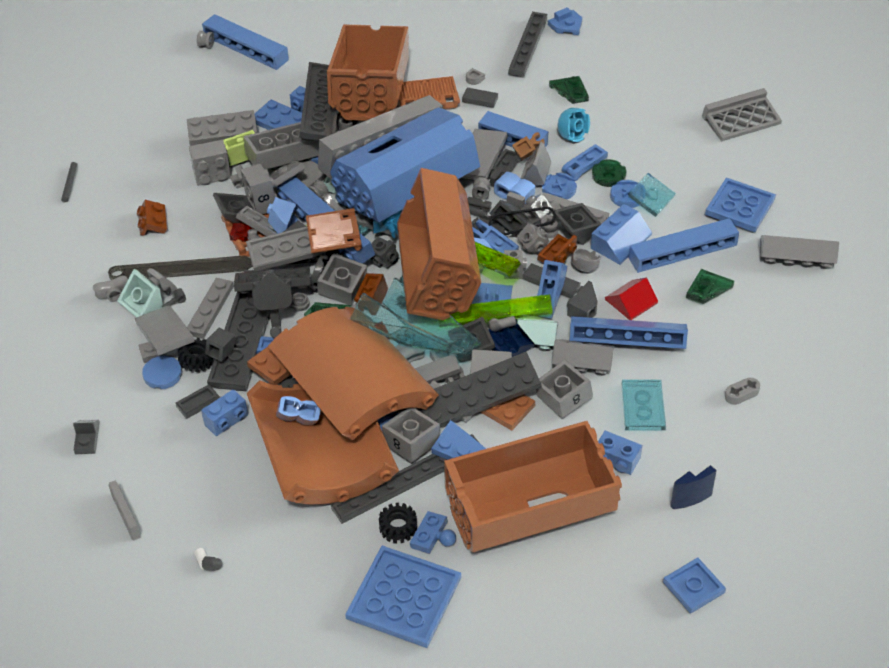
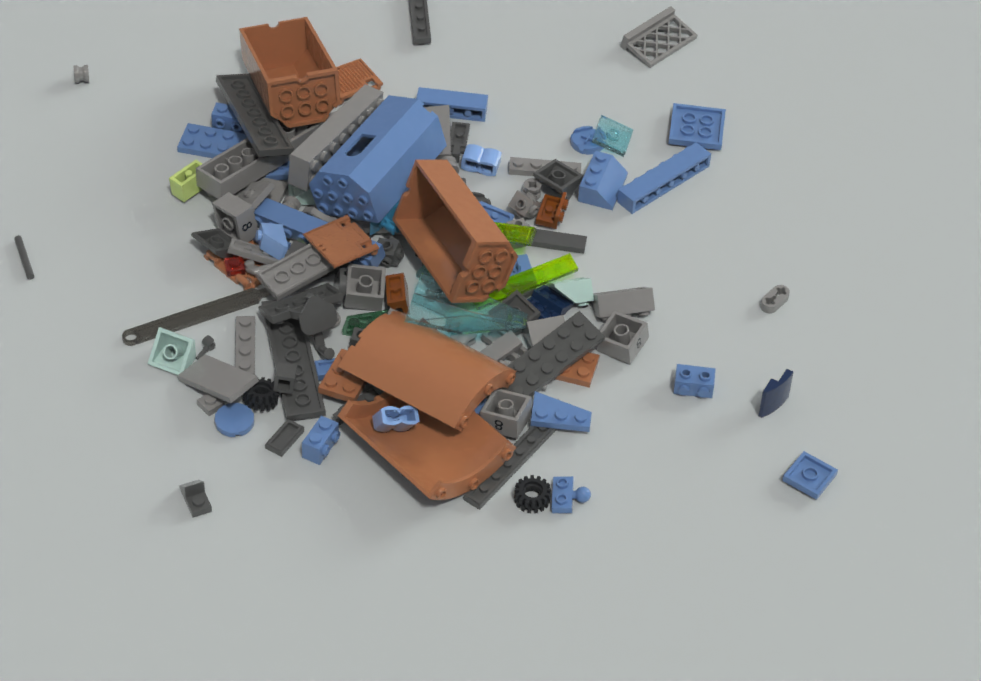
camera: 25 degrees left, 0 degrees up
(110, 289) = (137, 353): light grey piece -> none
(124, 510) = (275, 552): light grey tile -> none
(151, 217) = (134, 273): dark orange bracket -> none
(161, 282) = (191, 332): light grey slope -> none
(207, 562) = (377, 576): dark grey arm -> none
(209, 162) = (167, 203): light grey brick -> none
(220, 126) = (151, 171): light grey brick -> none
(237, 177) = (204, 212): light grey tile -> none
(246, 42) = (127, 67): medium blue brick -> none
(403, 596) = (570, 554): medium blue plate -> none
(474, 77) = (381, 54): light grey tile -> none
(480, 97) = (402, 74): dark grey tile -> none
(494, 485) = (605, 435): nougat panel -> none
(496, 325) = (532, 294): light grey arm -> none
(511, 221) = (493, 189): dark grey slope -> none
(516, 199) = (489, 173): light grey tile -> none
(521, 211) = (507, 179): black piece -> none
(526, 147) = (474, 116): medium nougat plate -> none
(536, 202) = (512, 174): light grey brick -> none
(537, 166) = (490, 132): light grey slope -> none
(552, 282) = (564, 240): medium blue slope -> none
(560, 185) = (520, 146): medium blue tile -> none
(571, 88) = (483, 45): clear green wing -> none
(573, 124) = (506, 82): medium azure cylinder -> none
(583, 303) = (601, 255): dark grey slope -> none
(584, 161) = (533, 117): medium blue plate -> none
(585, 260) = (581, 213): light grey hair -> none
(608, 172) = (560, 123): clear green tile -> none
(628, 332) = (654, 271): medium blue brick -> none
(633, 298) = (640, 238): red slope -> none
(643, 405) = (695, 333): clear light blue tile -> none
(708, 286) = (703, 211): clear green wing -> none
(799, 249) = (768, 157): light grey slope -> none

